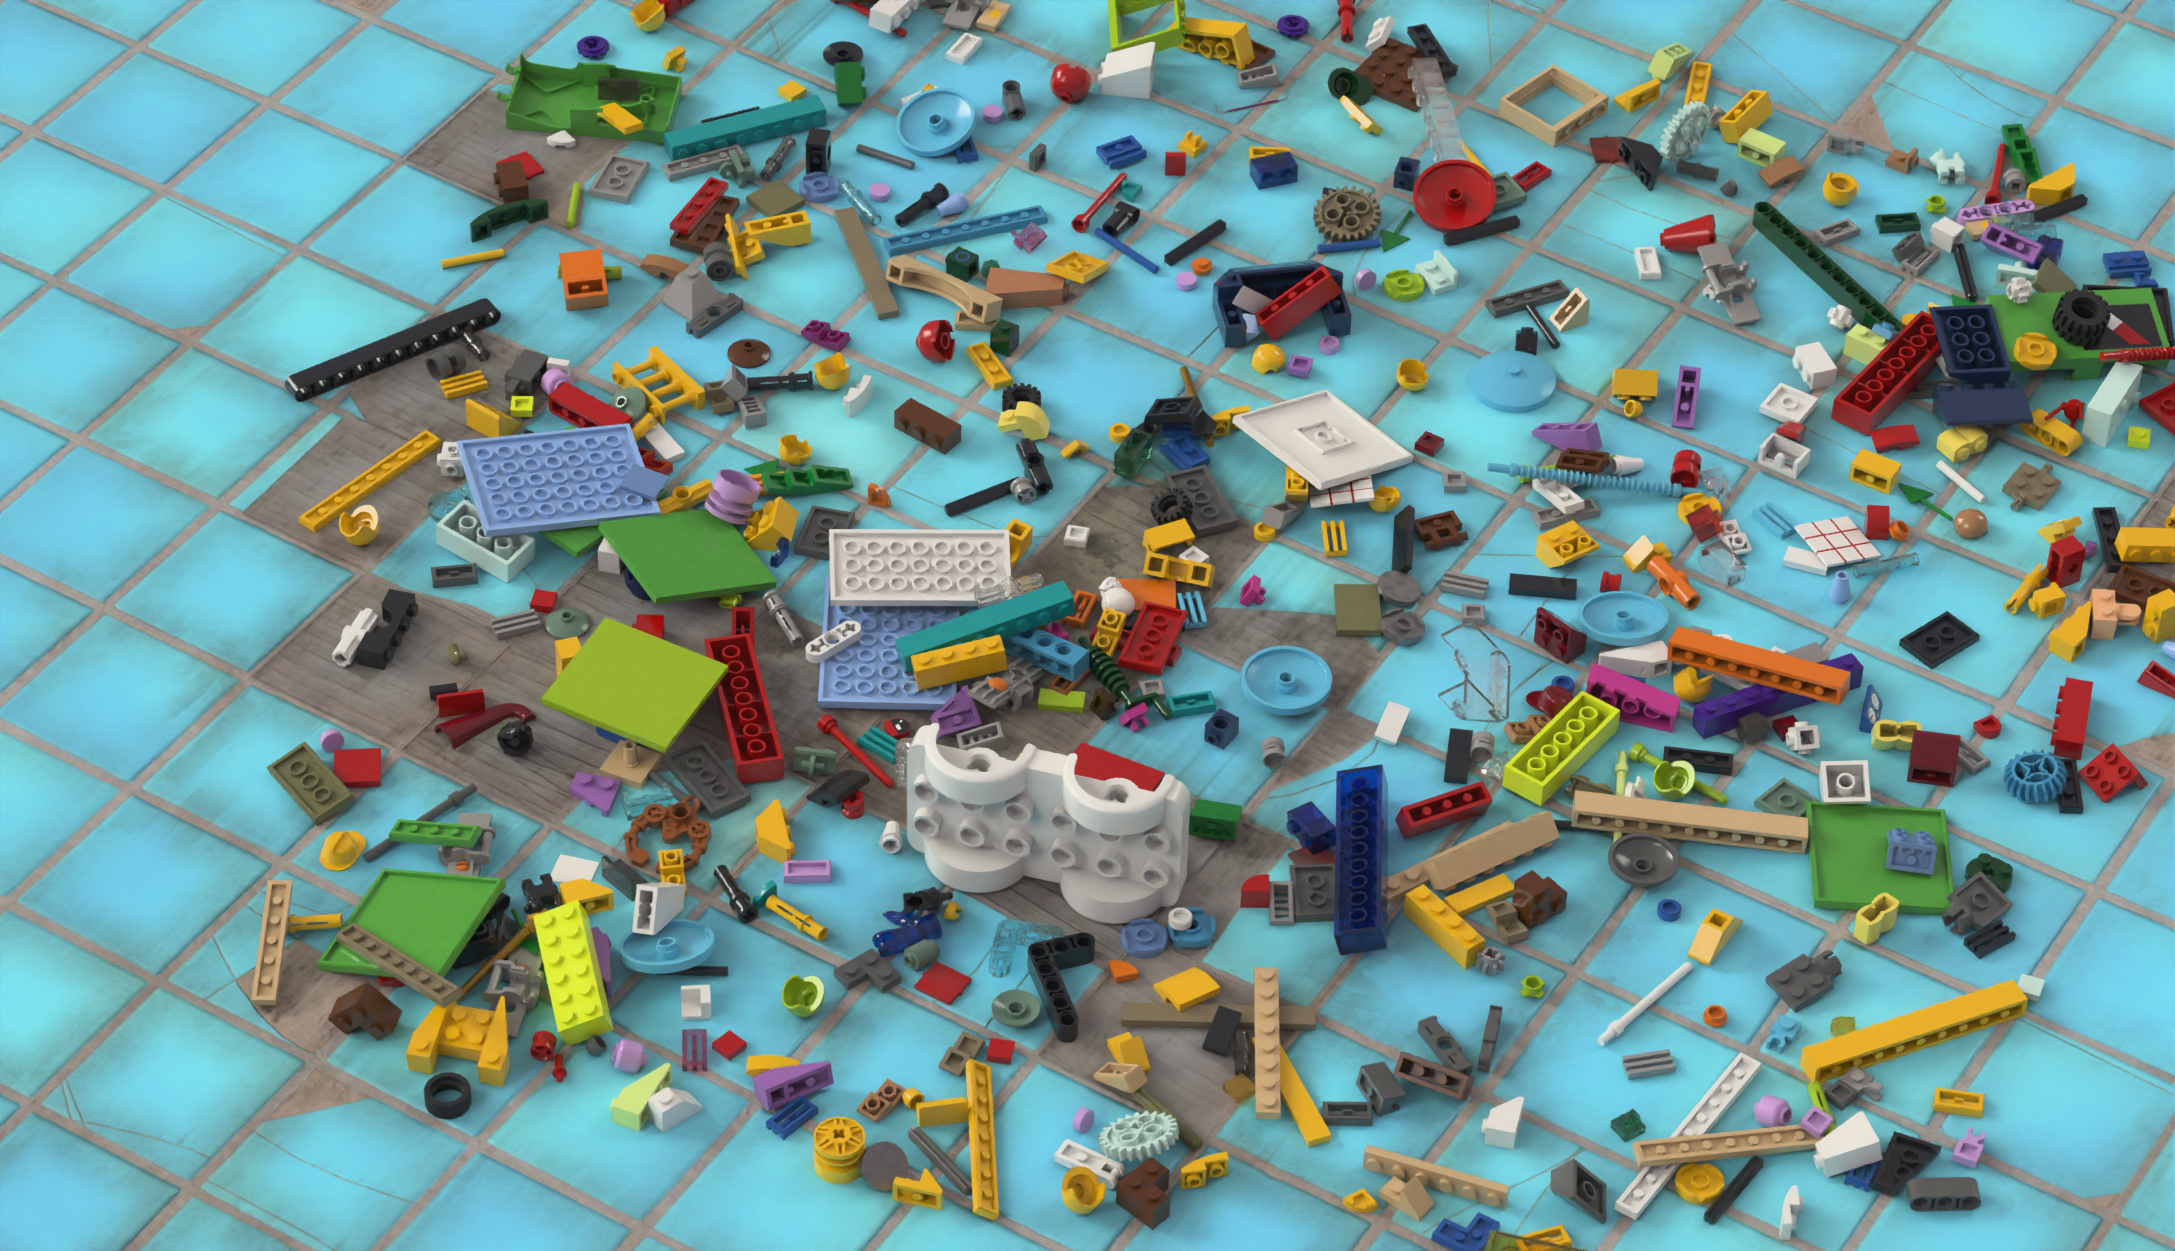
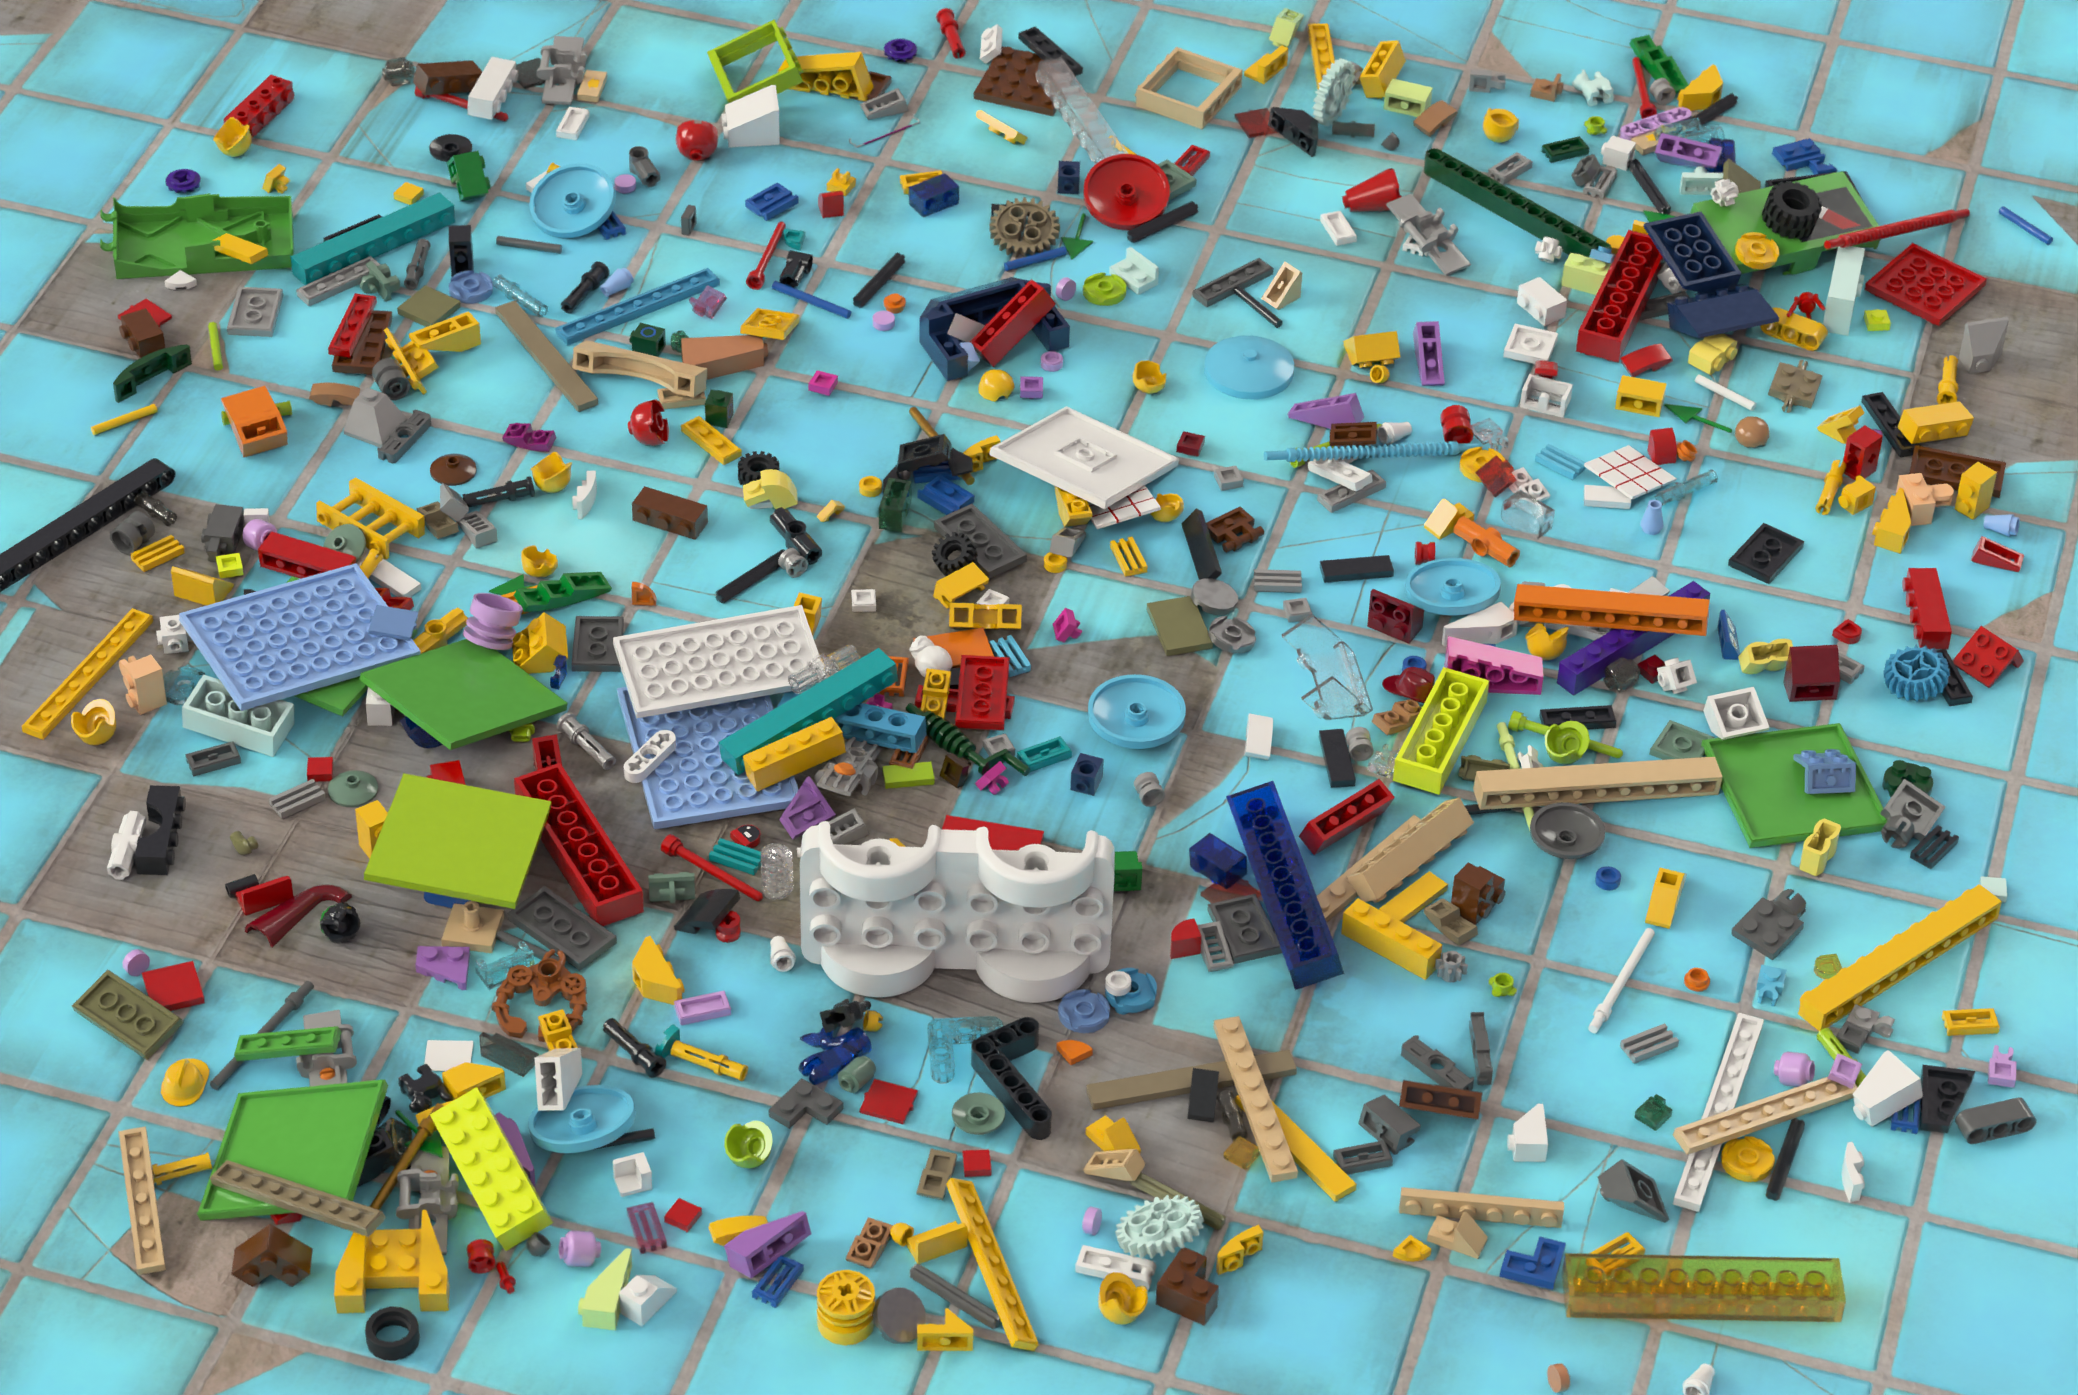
camera: 15 degrees left, 0 degrees up
(412, 498) = (144, 683): none -> light nougat brick
(618, 89) = (227, 219): clear smoke panel -> none
(879, 192) = (535, 281): lavender tile -> none
(1109, 330) = (823, 383): none -> dark pink plate
(1187, 988) = (1149, 1056): yellow slope -> none
(1350, 84) = (982, 97): dark green piece -> none
(1526, 340) = (1249, 323): black bracket -> none
(1564, 545) = (1366, 523): yellow slope -> none

